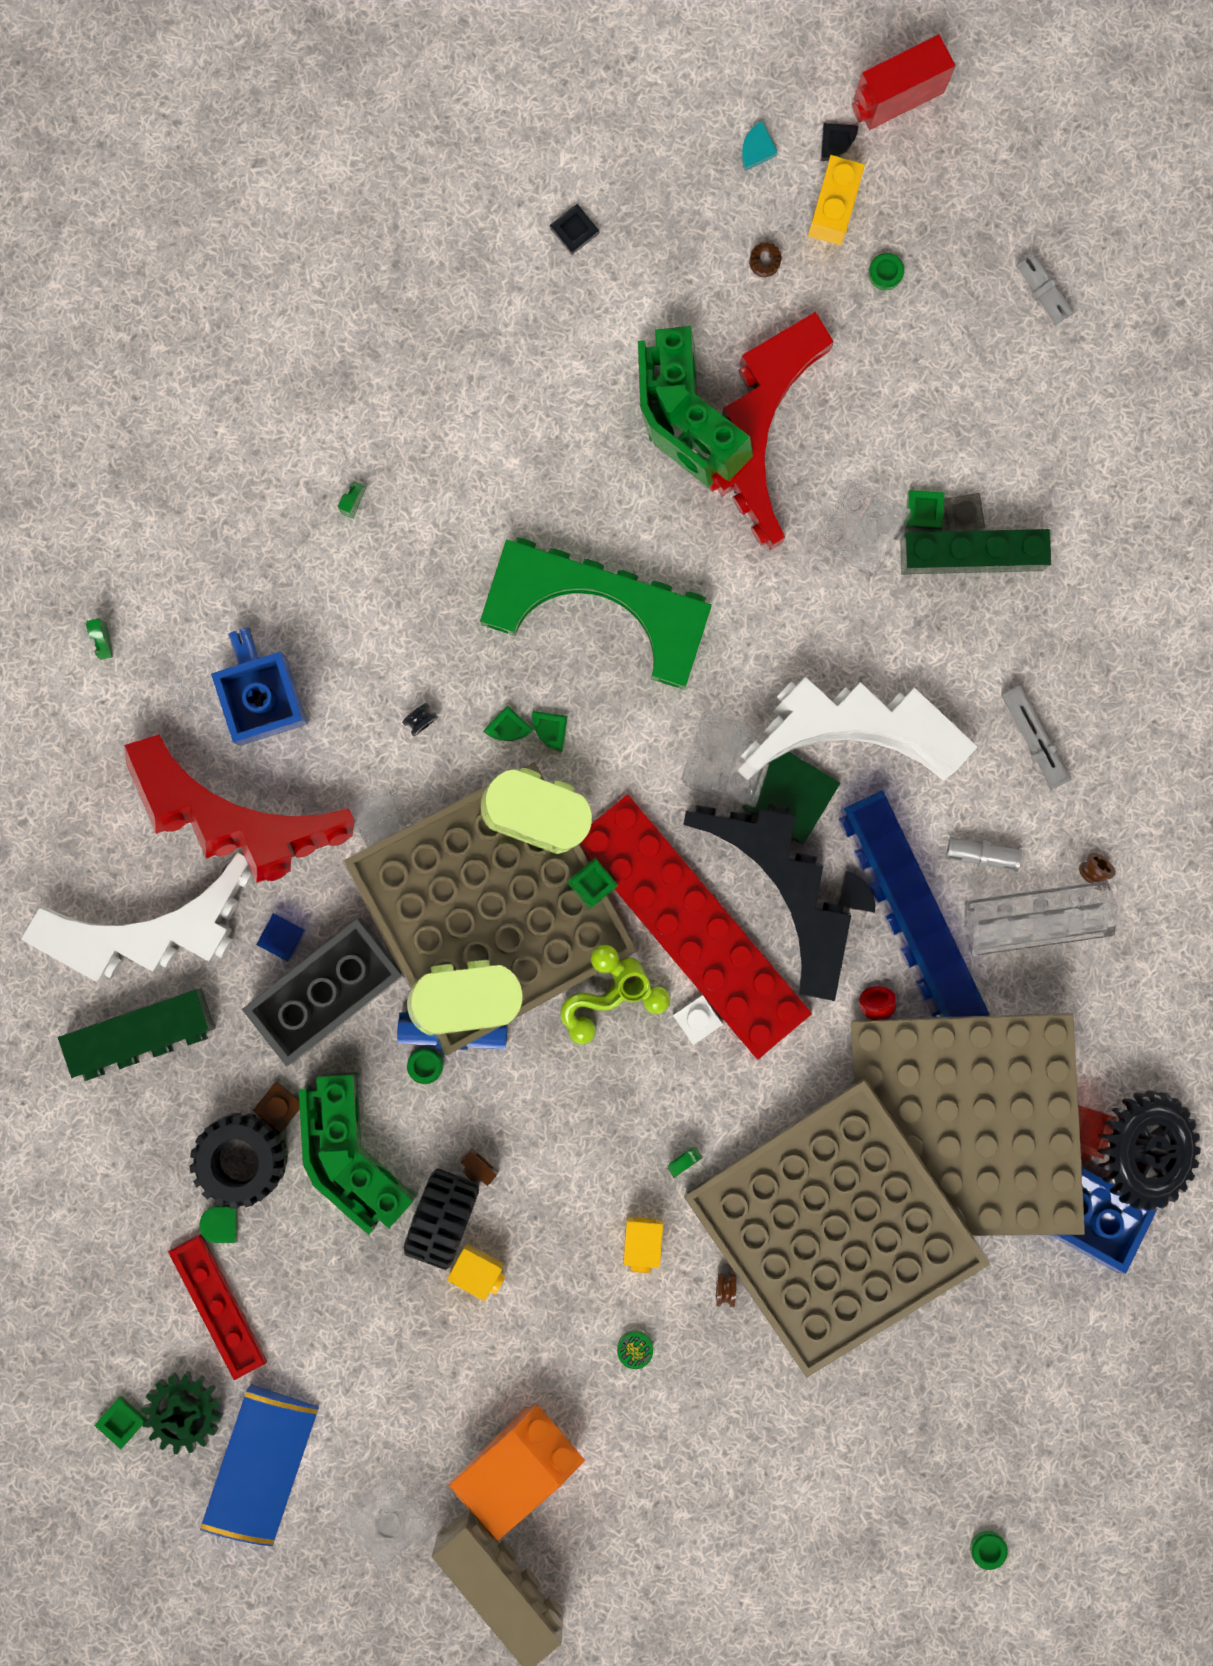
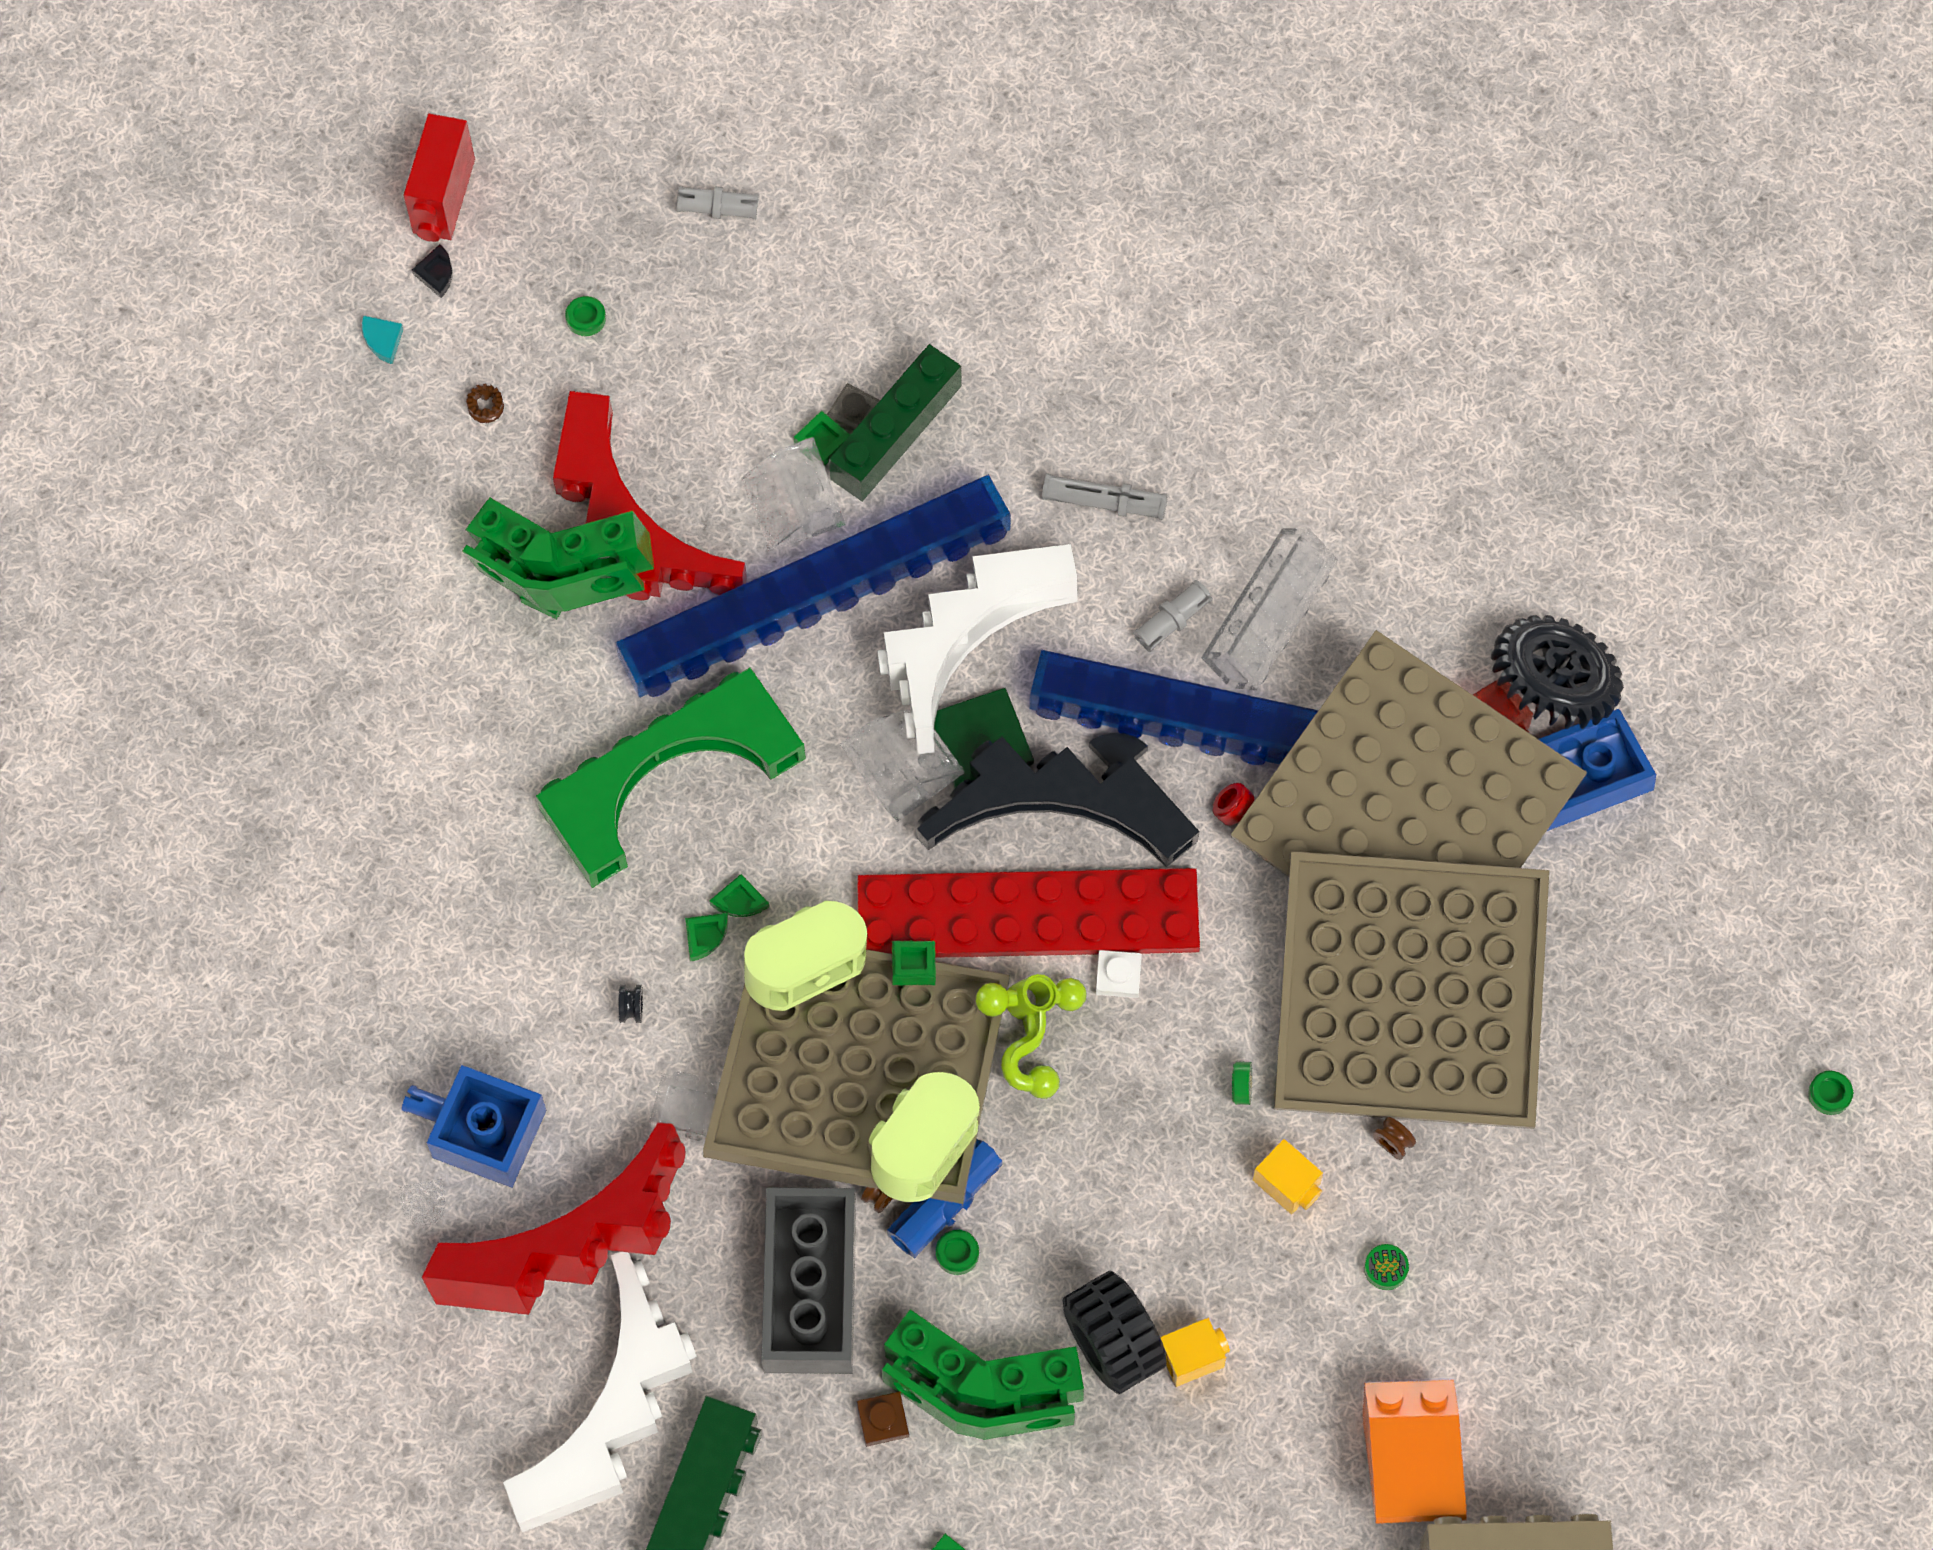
camera: 45 degrees left, 20 degrees down
(98, 630) = (291, 1229): green tile -> none
(209, 1171) = (906, 1526): black tyre -> none
(281, 937) = (724, 1287): clear blue plate -> none
(350, 502) = (378, 910): green tile -> none
(477, 1168) = (1090, 1268): reddish brown plate -> none
(574, 229) = (312, 538): black tile -> none
(811, 597) = (814, 586): none -> clear blue brick
(836, 200) = (488, 306): yellow brick -> none
(1096, 869) = (1264, 532): reddish brown bush -> none

